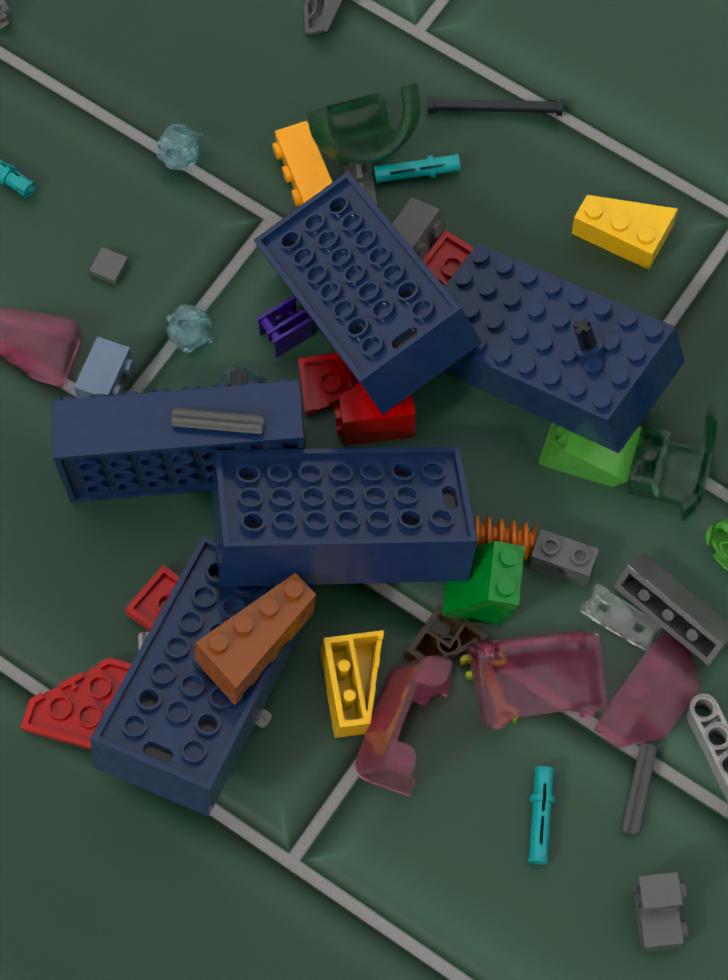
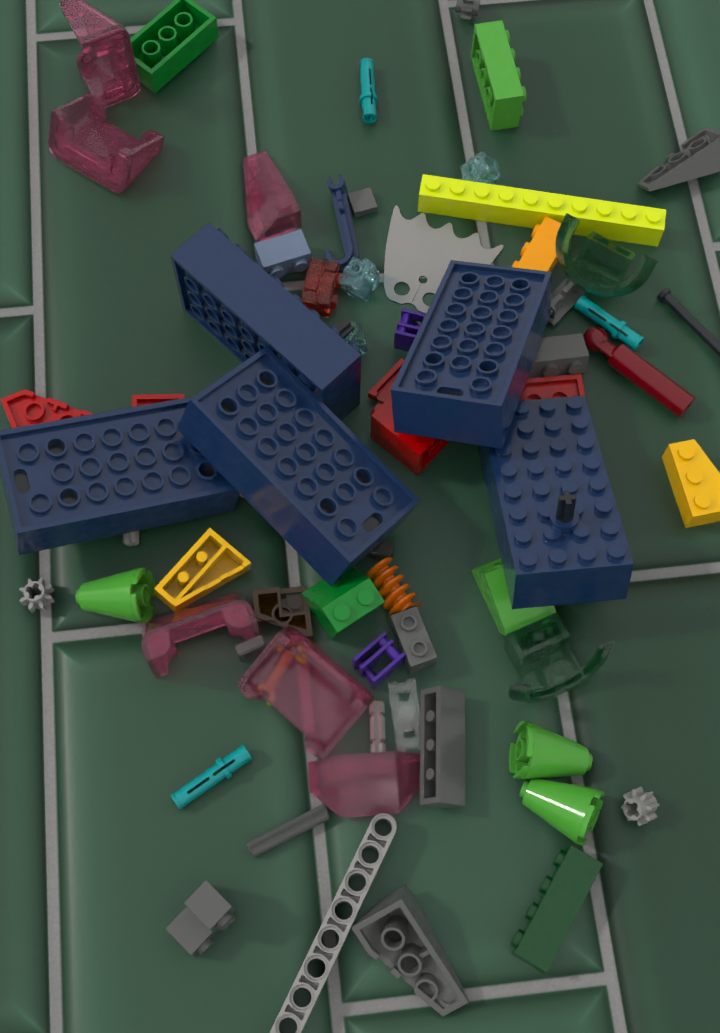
camera: 45 degrees right, 0 degrees up
(96, 51) = (497, 75): none -> bright green brick
(124, 299) = (345, 223): none -> dark blue piece
(163, 365) = (321, 286): none -> clear red brick
(214, 250) = (420, 250): none -> light grey piece
(217, 421) = (283, 328): dark grey axle -> none
(250, 829) = (35, 588): none -> light grey gear
(253, 637) = (157, 477): dark orange wedge -> none
(256, 132) = (529, 207): none -> neon yellow brick
(311, 767) = (120, 595): none -> bright green cone
(456, 694) = (250, 648): none -> dark grey tile
(485, 184) = (640, 372): none -> dark red piece
(558, 617) = (366, 667): none -> dark purple piece
(616, 651) = (377, 726): none -> light grey axle

